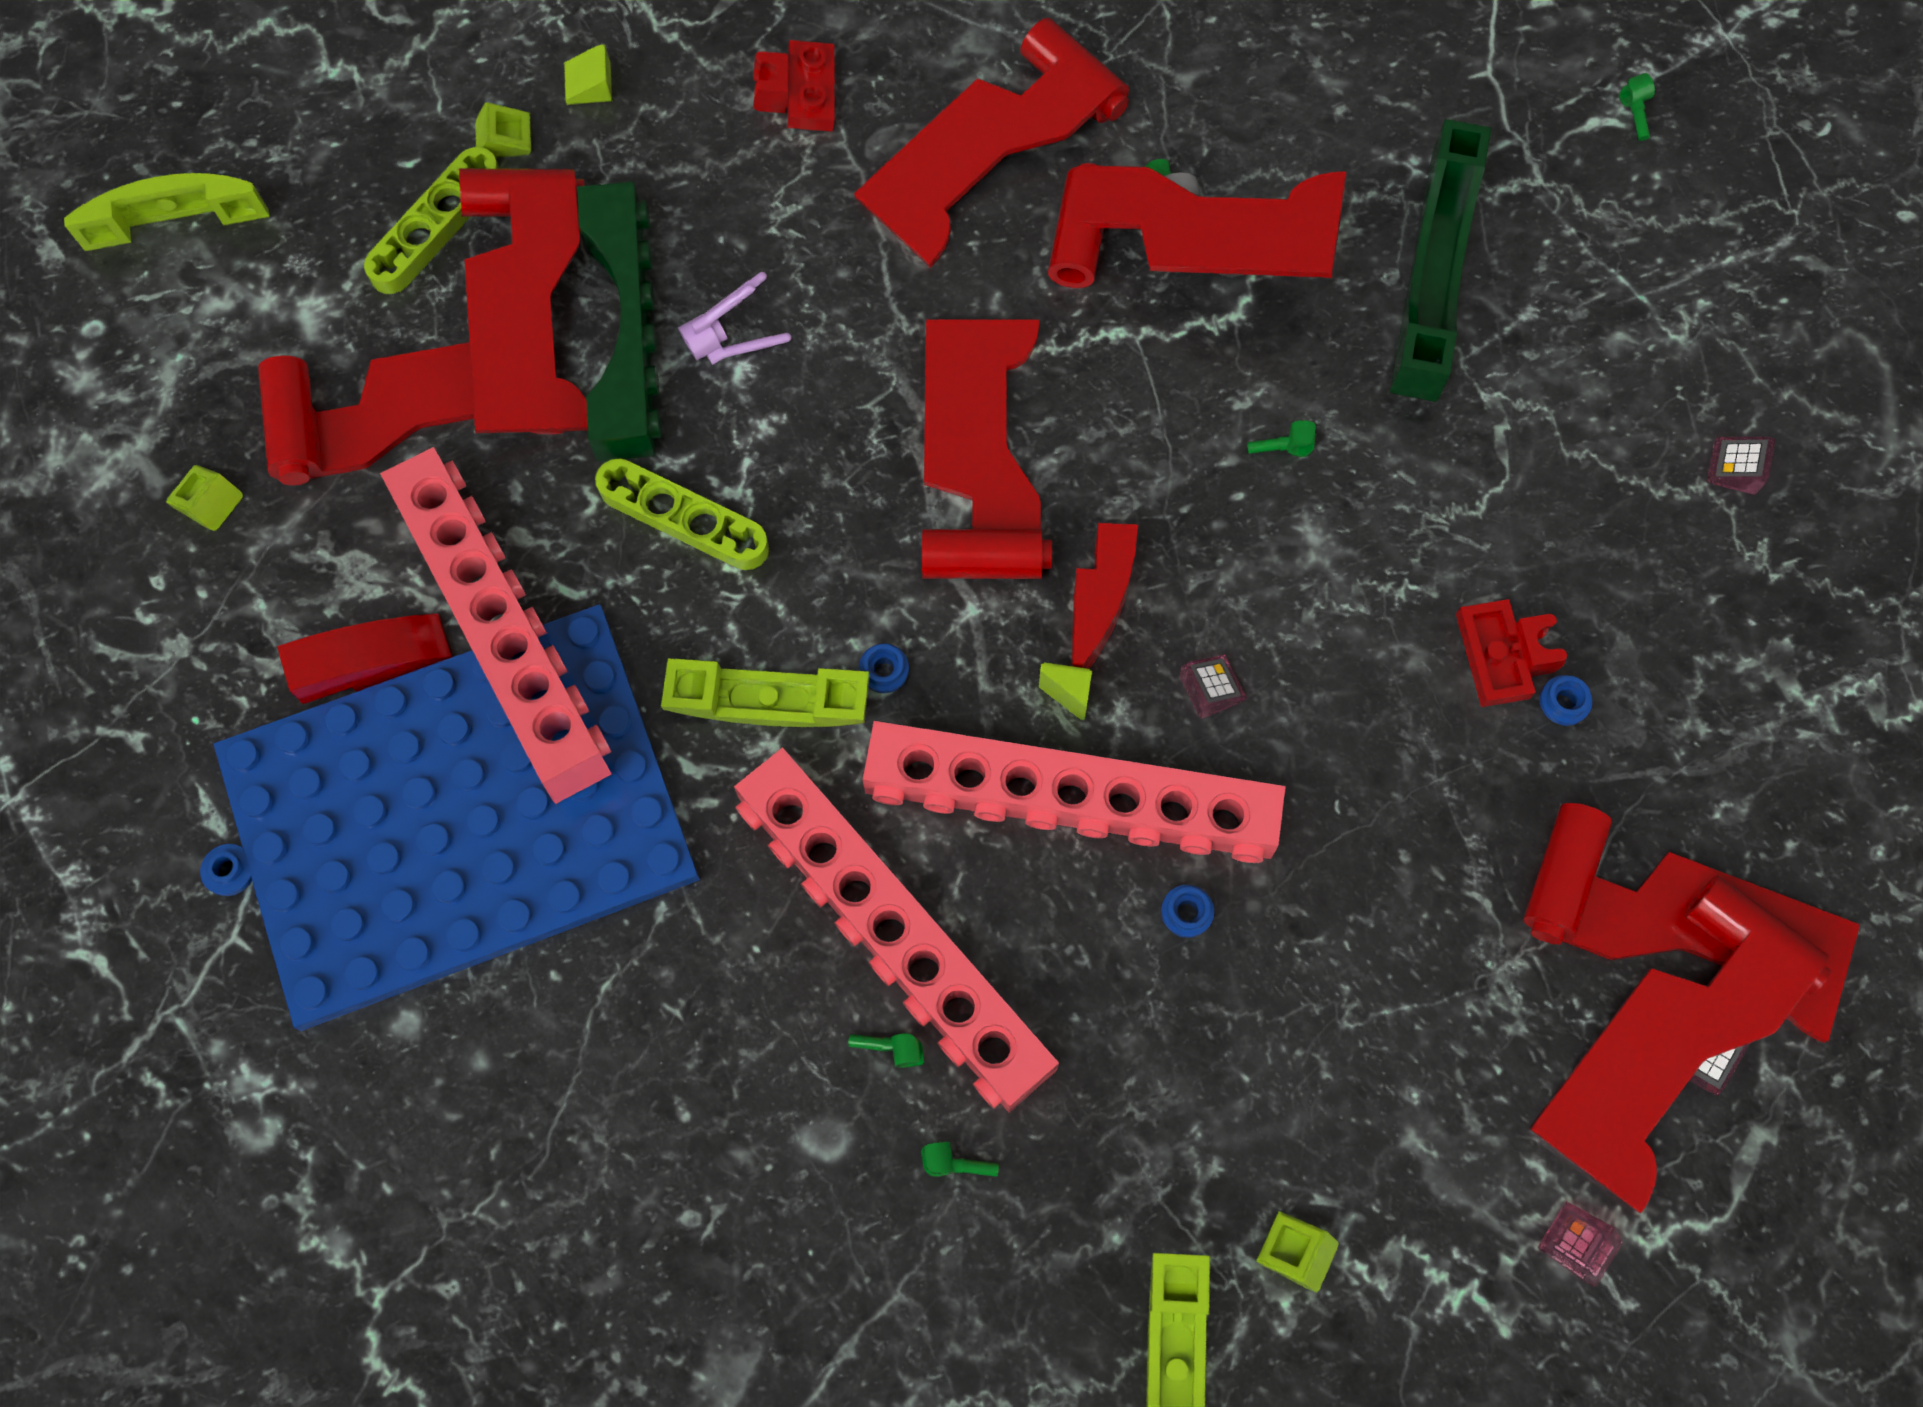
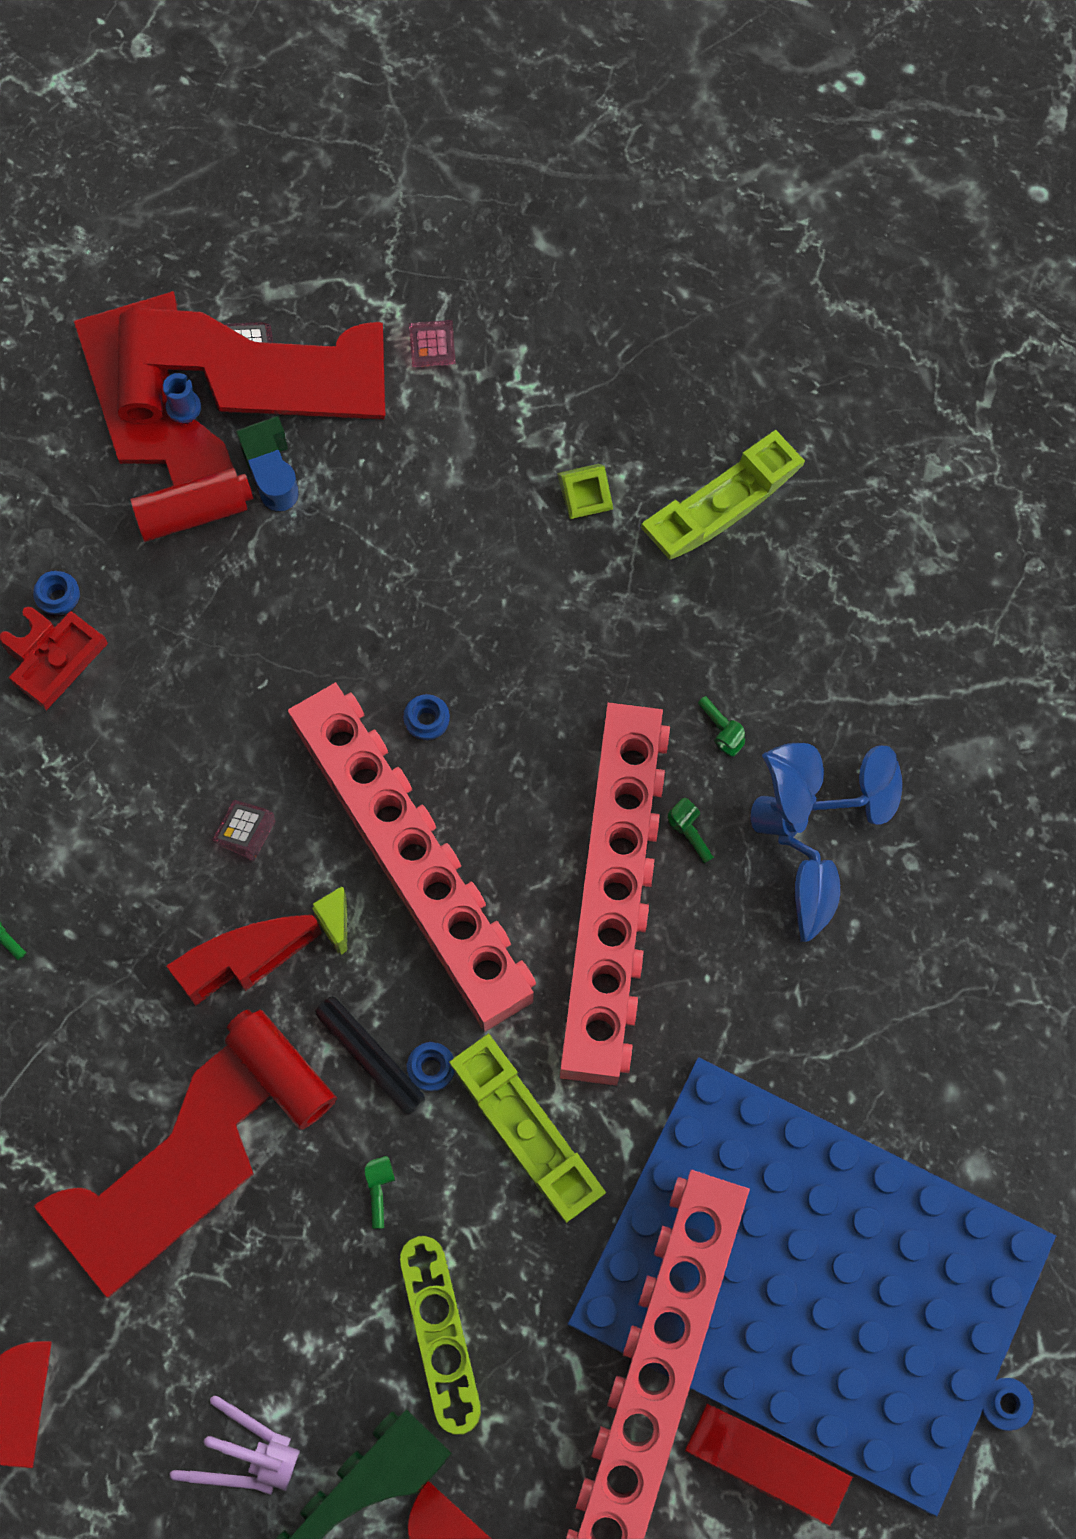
camera: 135 degrees left, 0 degrees up
(823, 1128) = (796, 779): none -> blue plant
(839, 563) = (378, 1173): none -> green hand
(936, 631) = (370, 1055): none -> black axle
(1558, 972) = (271, 475): none -> leg
(1687, 943) = (181, 402): none -> blue pin

